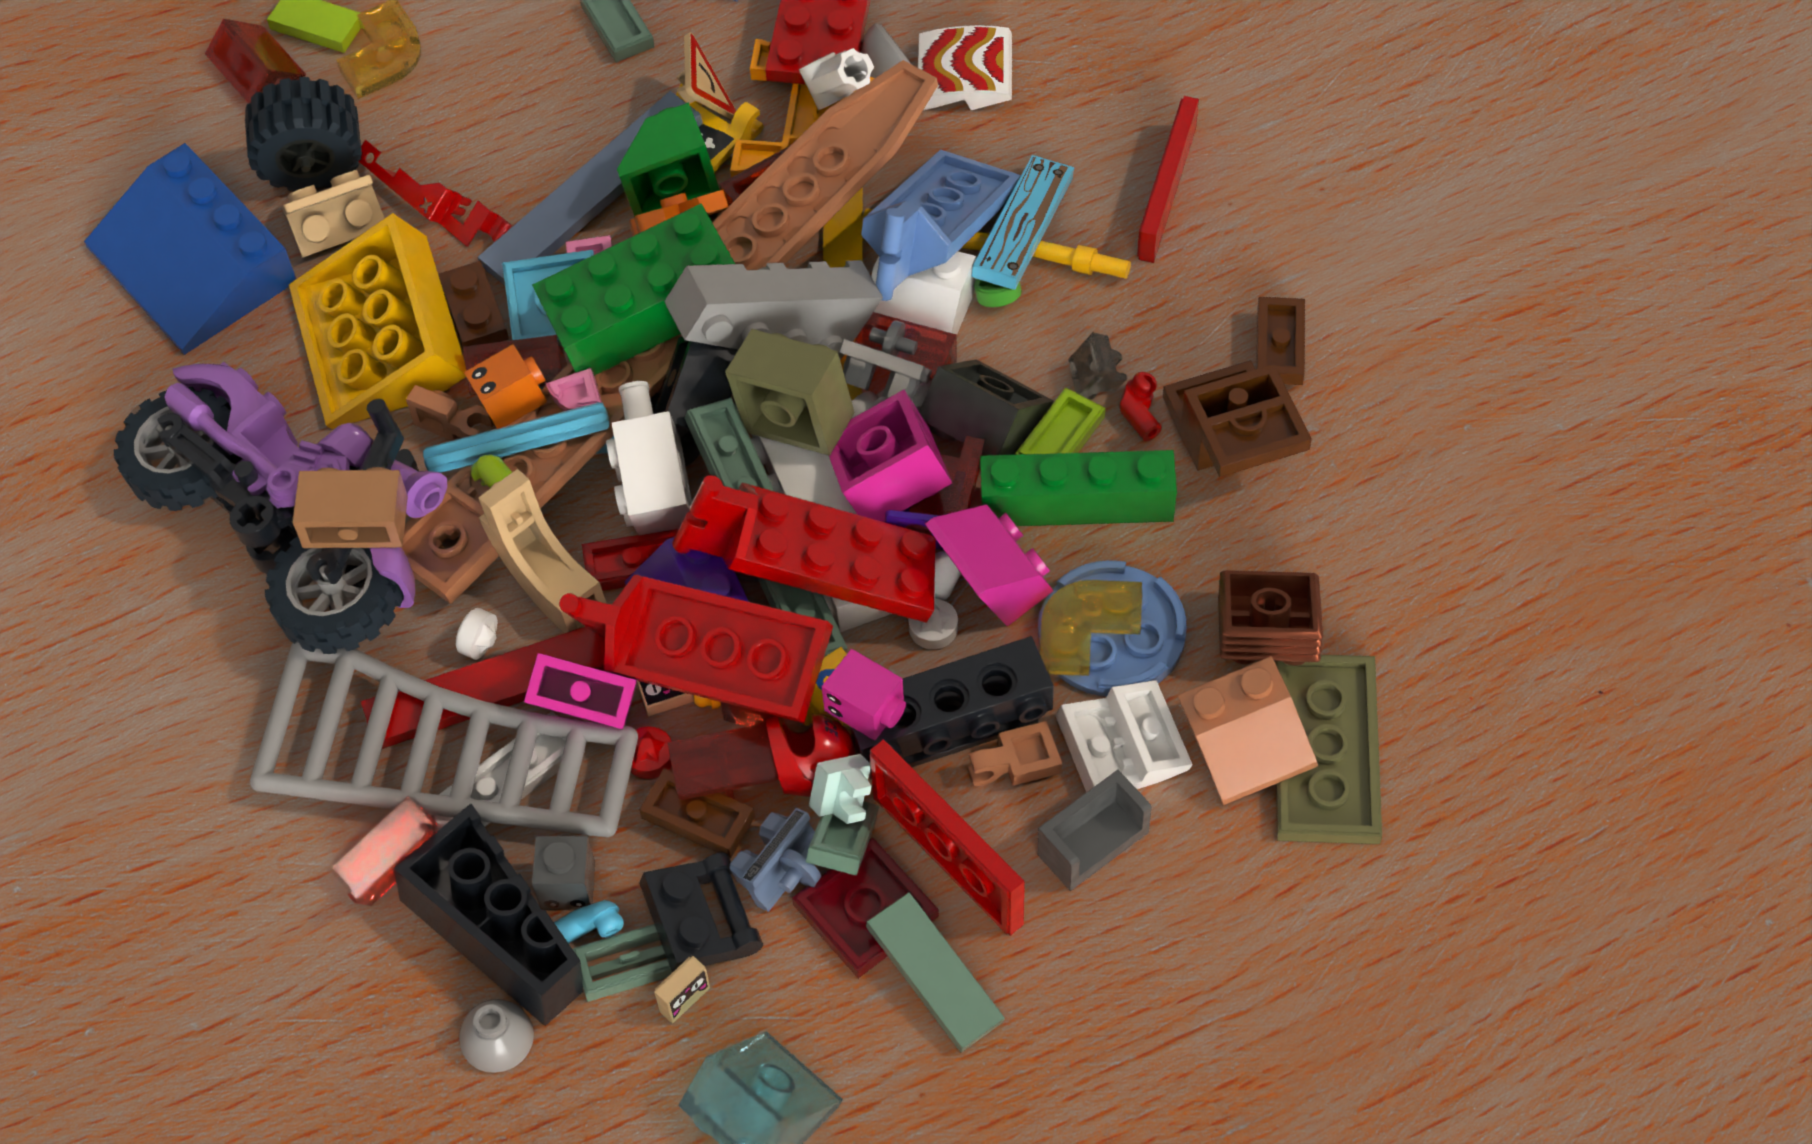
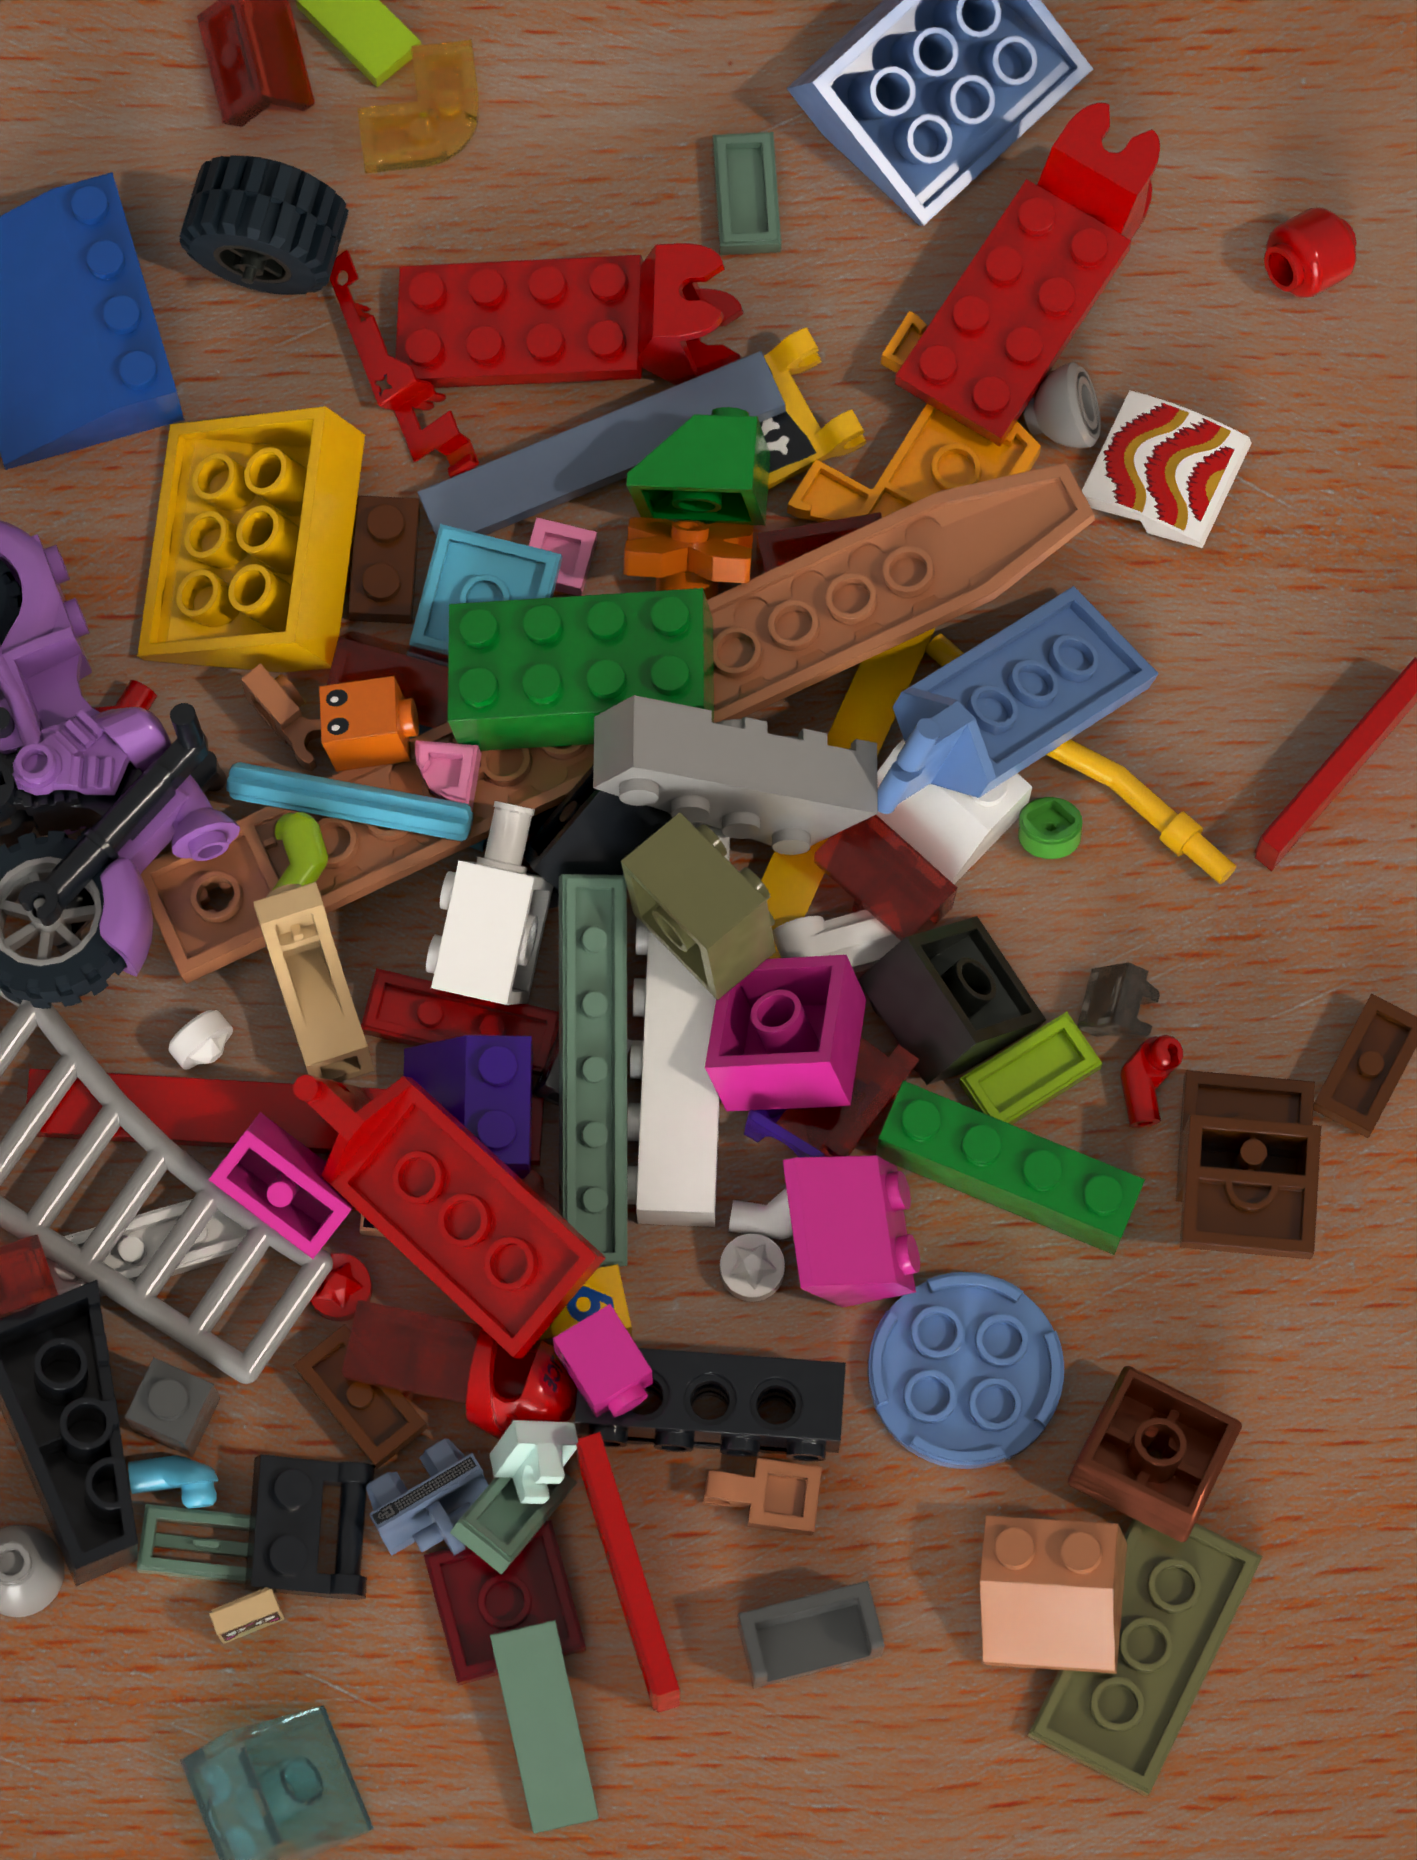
camera: 20 degrees right, 15 degrees up
(333, 214) = (263, 345): tan bracket -> none
(350, 508) = (97, 846): medium nougat brick -> none
(533, 119) = (564, 319): none -> red hinge
(701, 81) = (806, 363): tan piece -> none
(812, 547) = (640, 1135): red hinge -> none
(836, 76) = (970, 442): white piece -> none
(863, 360) = (850, 893): dark grey hips -> none
(1022, 222) = (1125, 749): medium azure tile -> none
(1083, 610) = (928, 1338): clear yellow plate -> none
(1124, 733) = (906, 1526): white slope -> none

